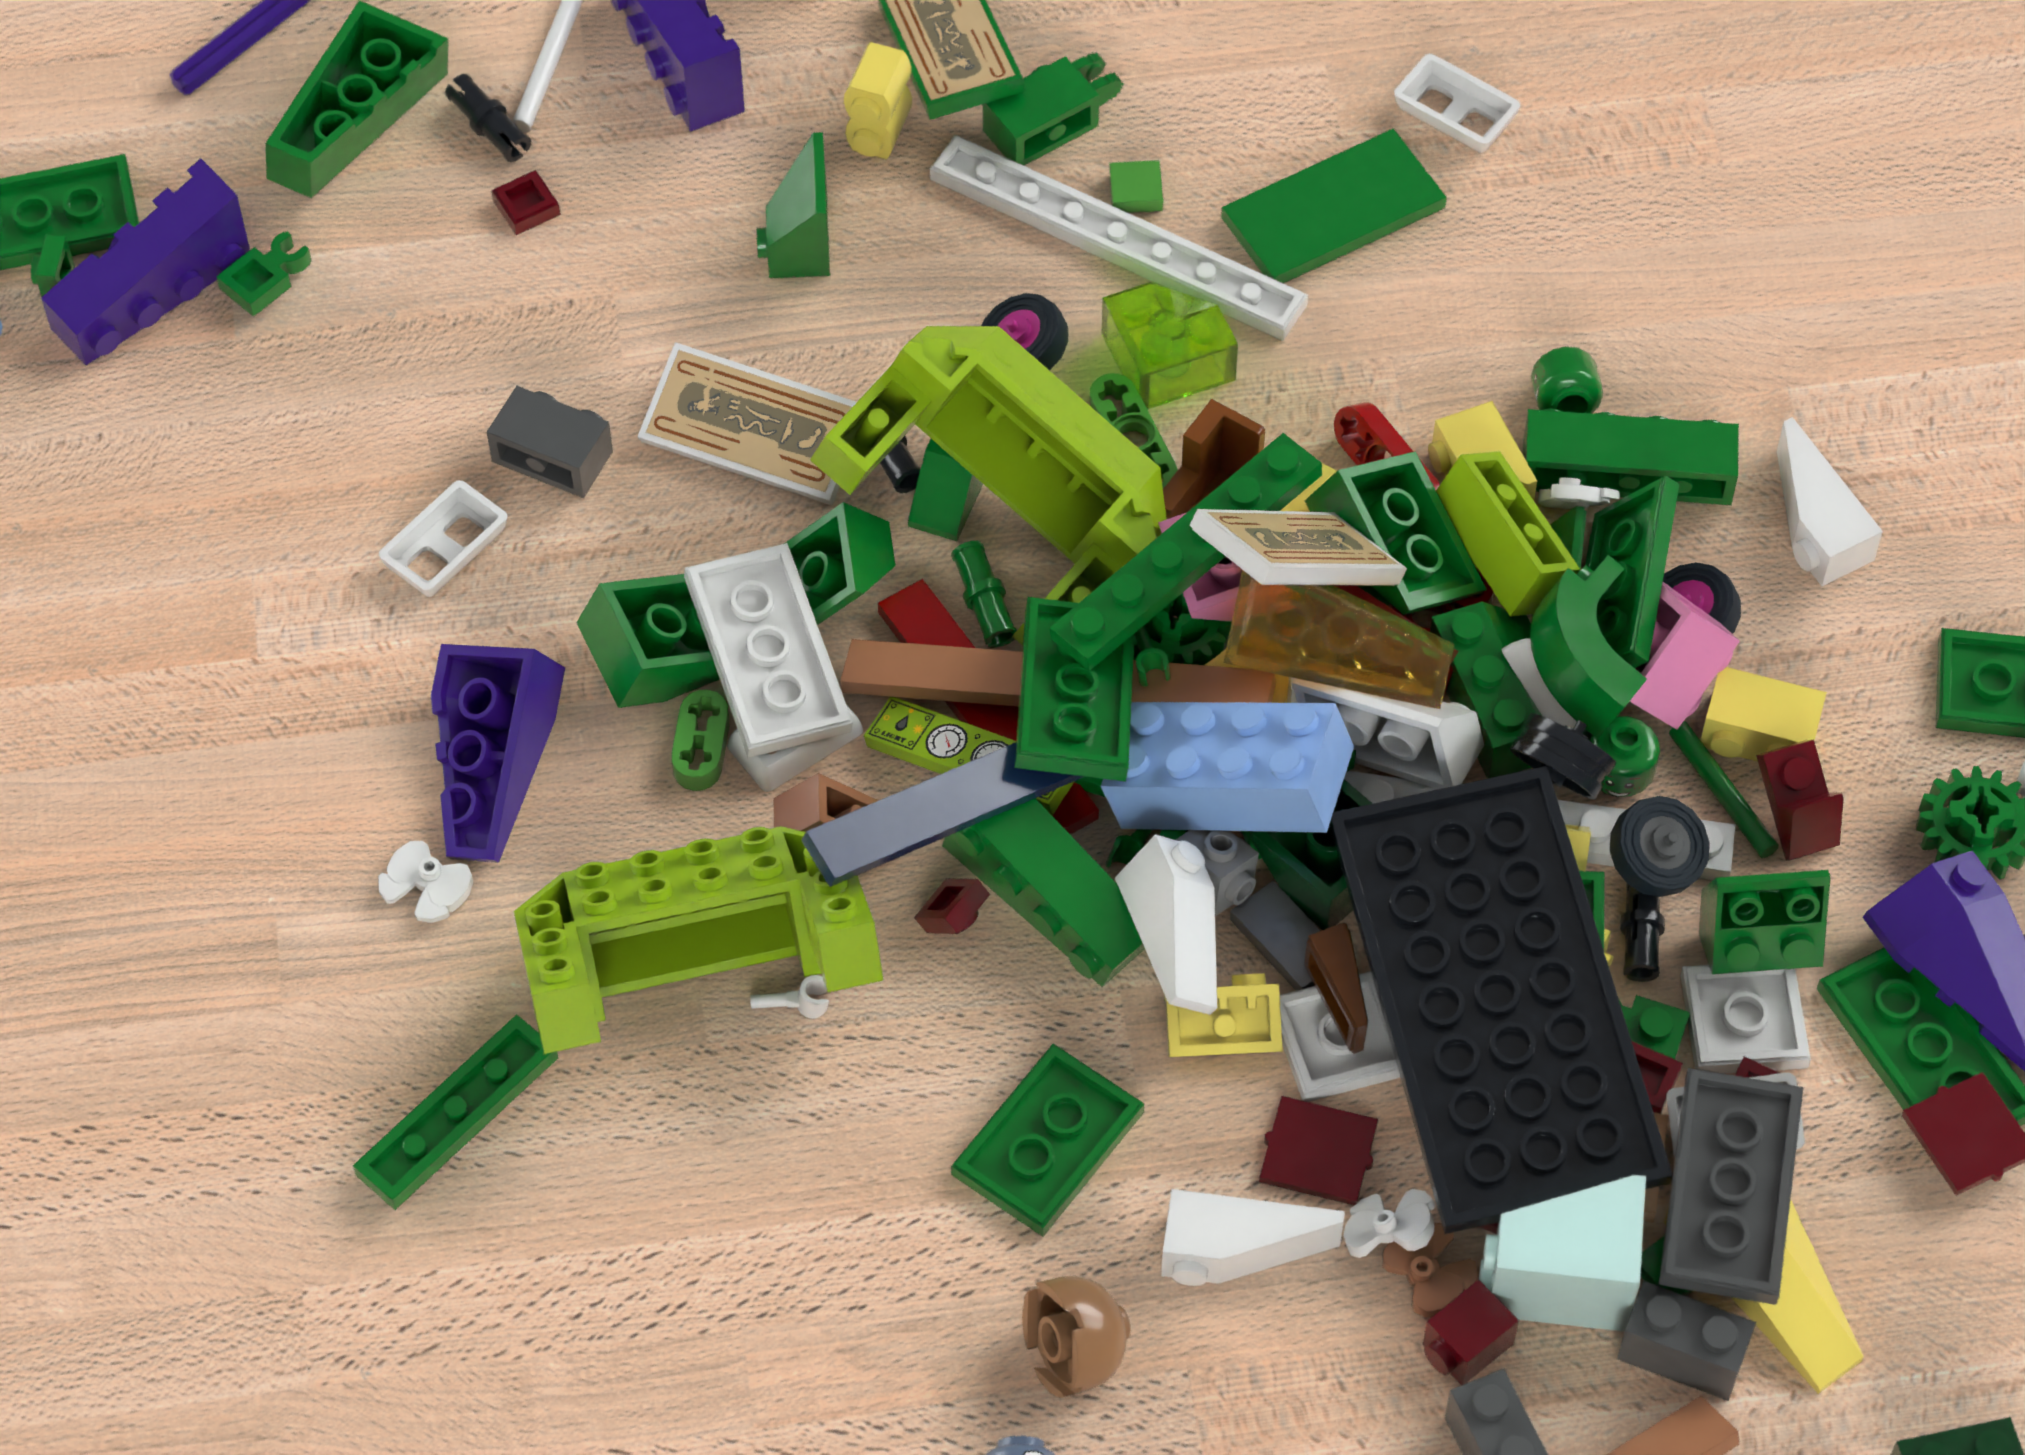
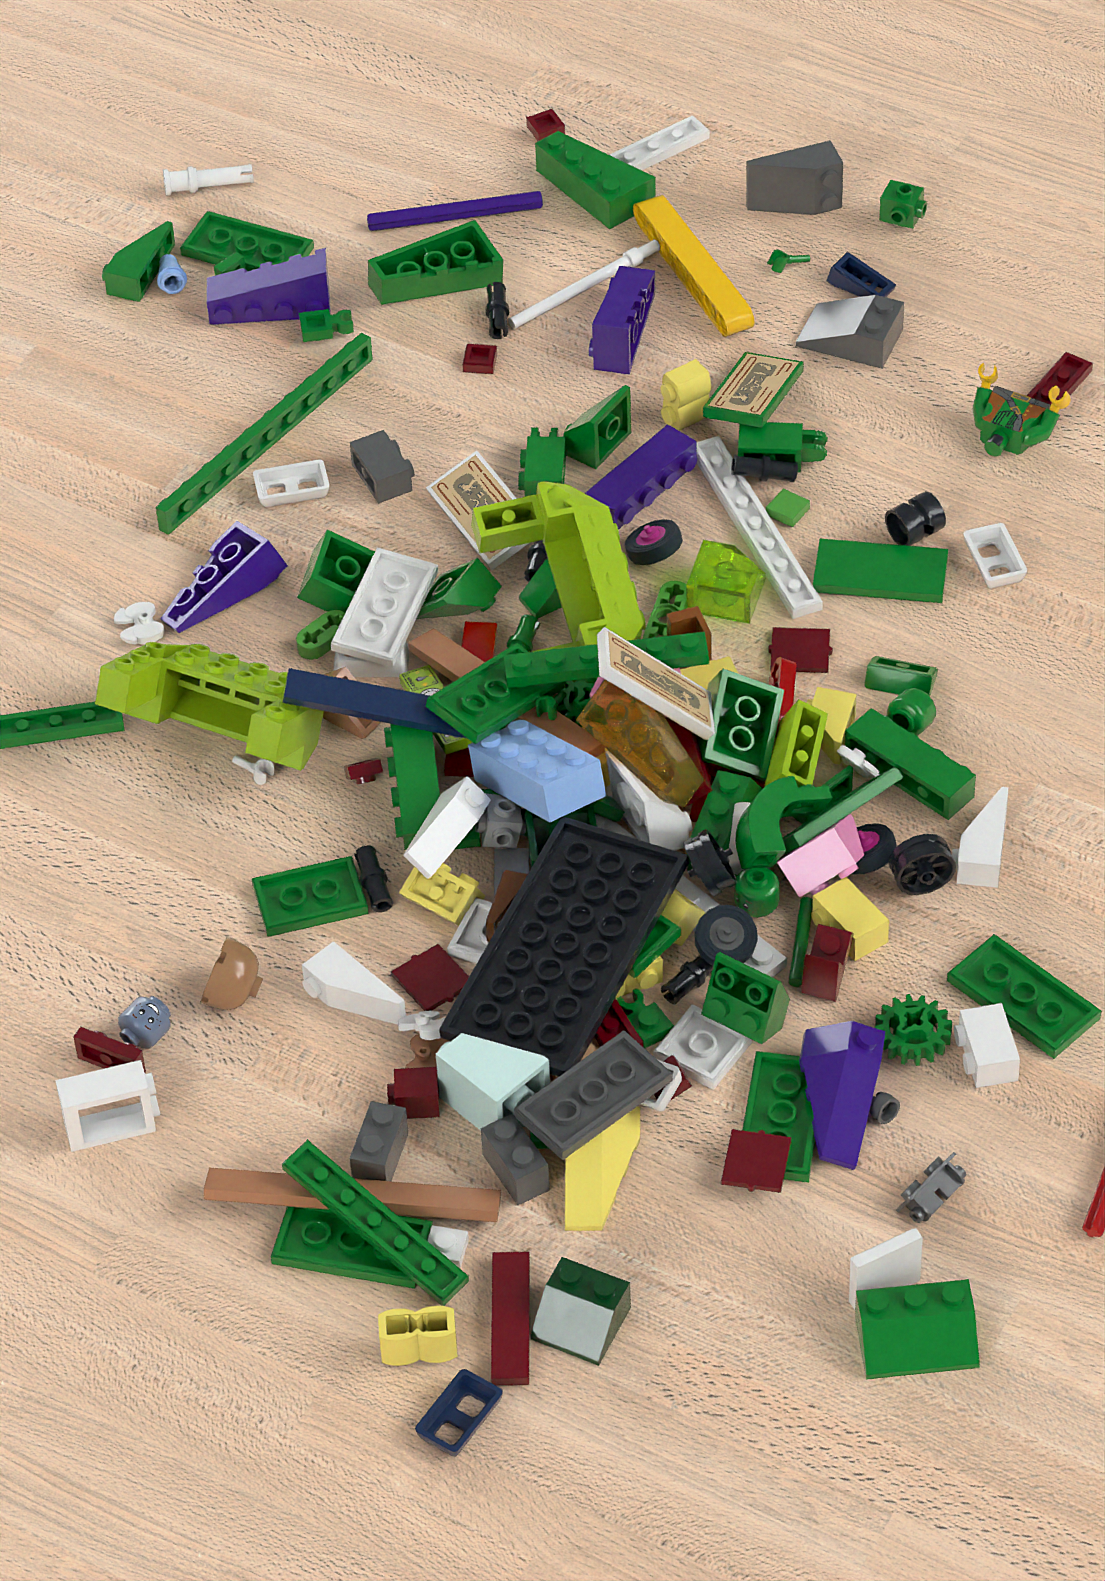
camera: 40 degrees right, 10 degrees down
(334, 503) = (263, 434): none -> green plate
(773, 312) = (542, 460): none -> green hinge
(918, 249) = (645, 474): none -> dark purple brick
(1063, 148) = (764, 468): none -> black pin
(1115, 1058) = (373, 878): none -> black pin
(1322, 110) = (915, 520): none -> black wheel
(1335, 376) = (804, 646): none -> dark red piece
(1495, 342) = (898, 675): none -> green slope
(1788, 588) = (922, 864): none -> black wheel

